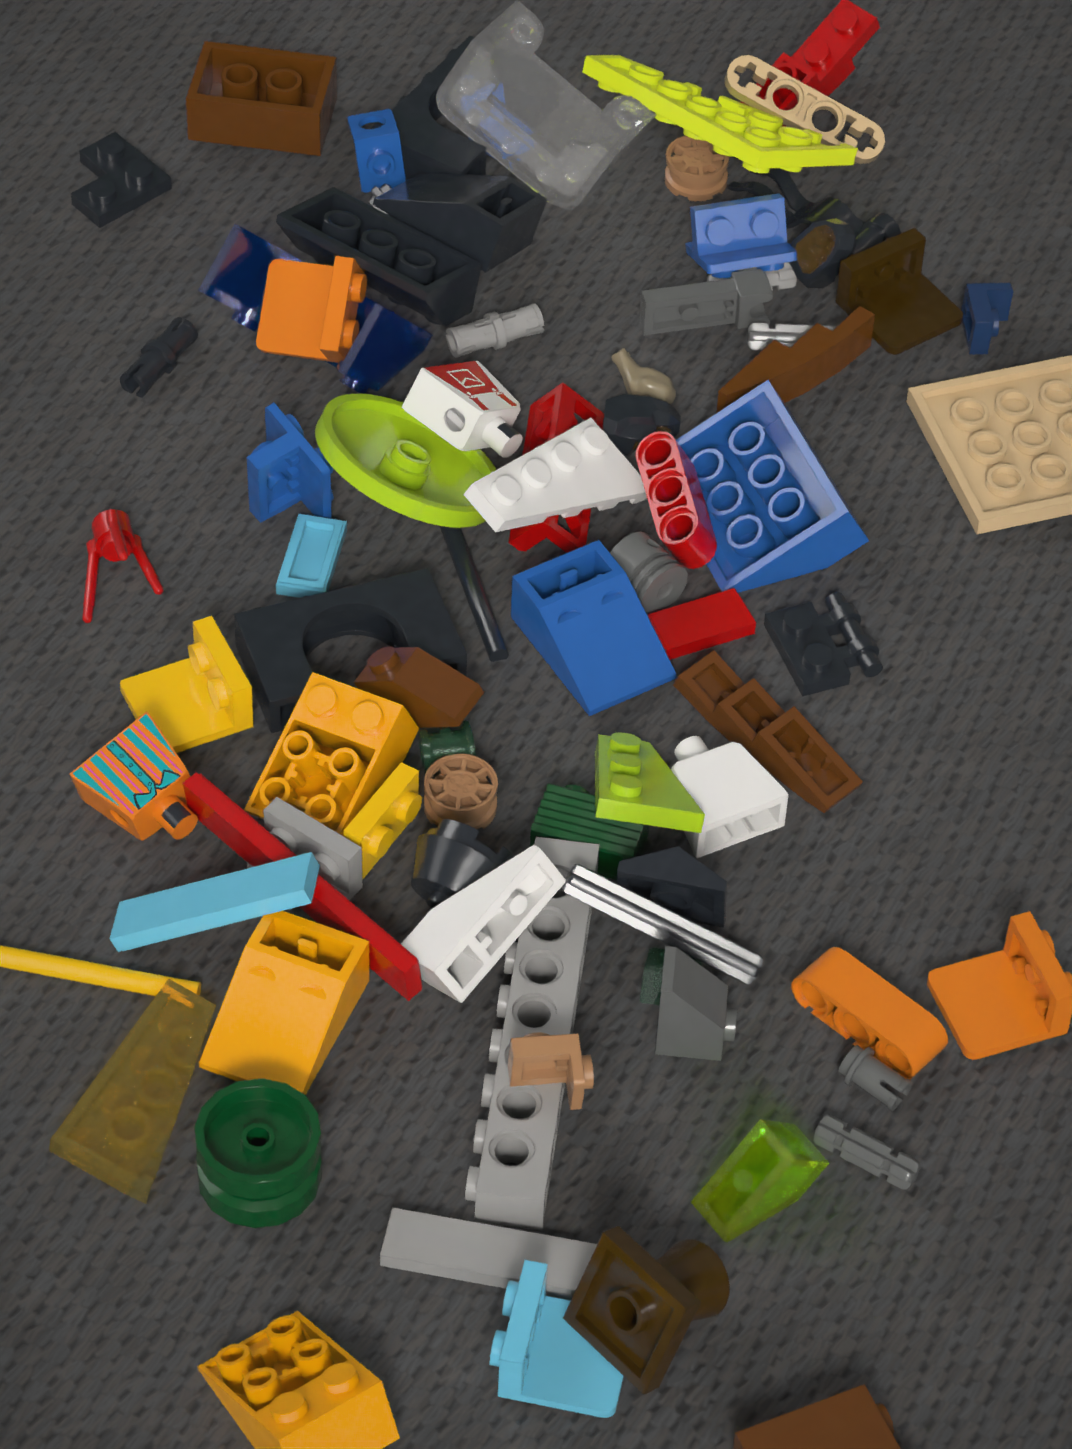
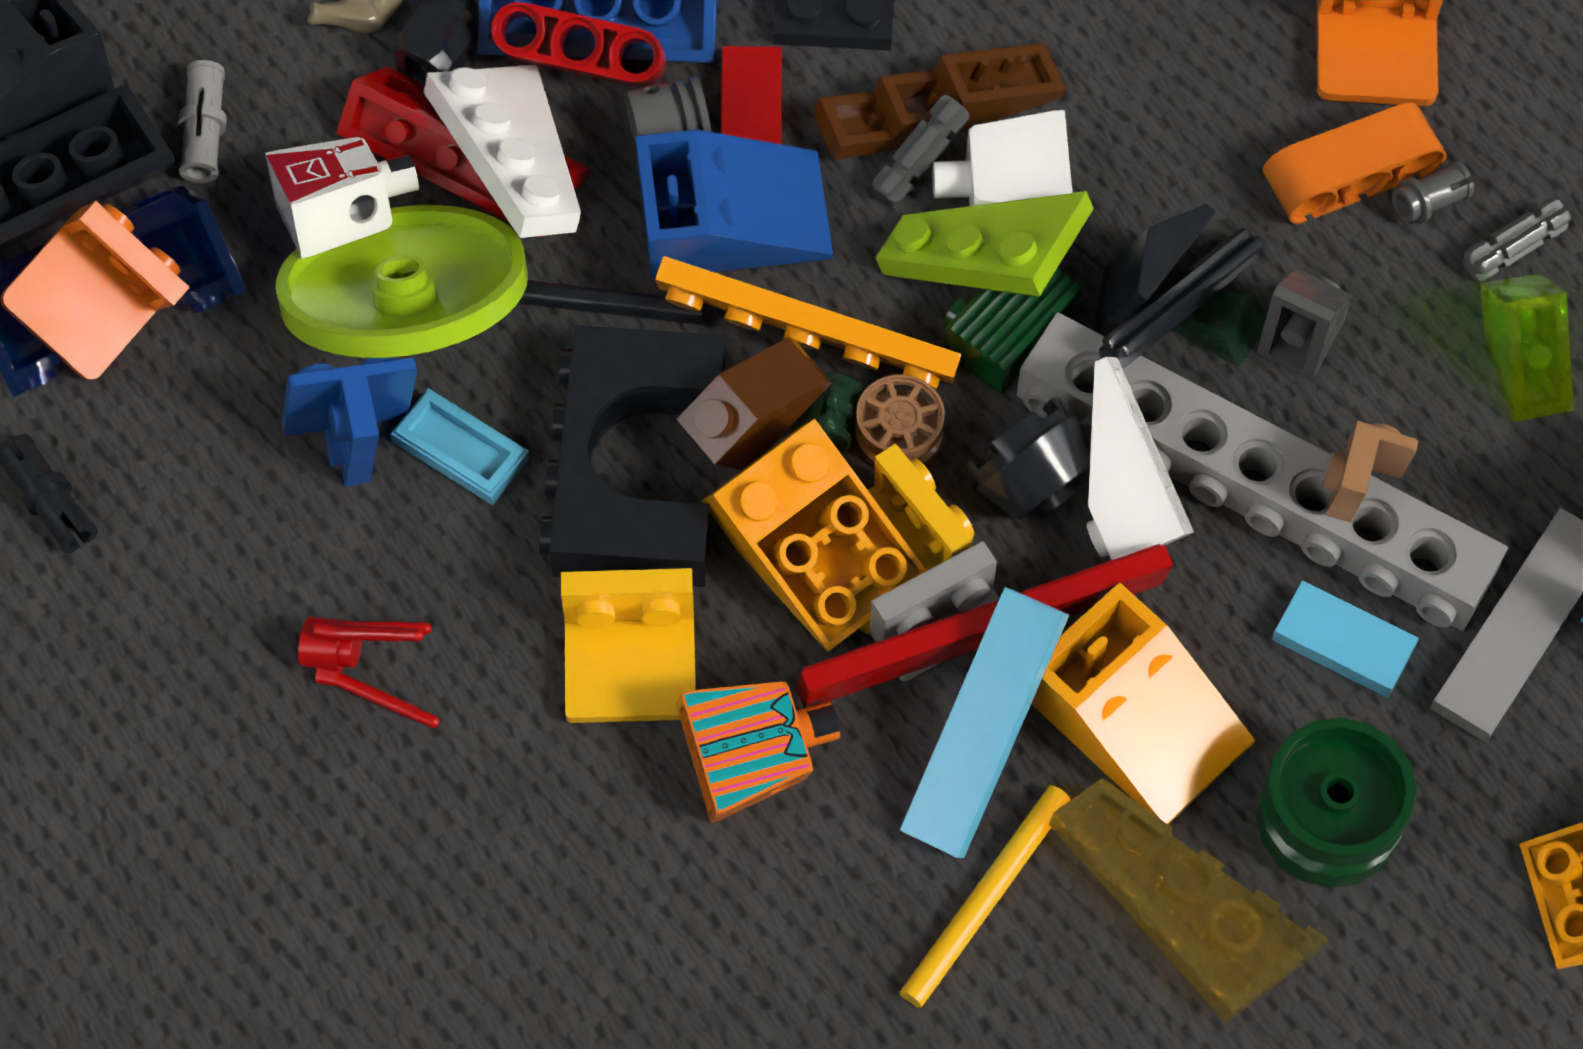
camera: 65 degrees left, 15 degrees up
(422, 1138) = (1345, 639): none -> medium azure tile
(510, 705) = (805, 323): none -> light orange plate
(709, 727) = (921, 149): none -> dark grey axle

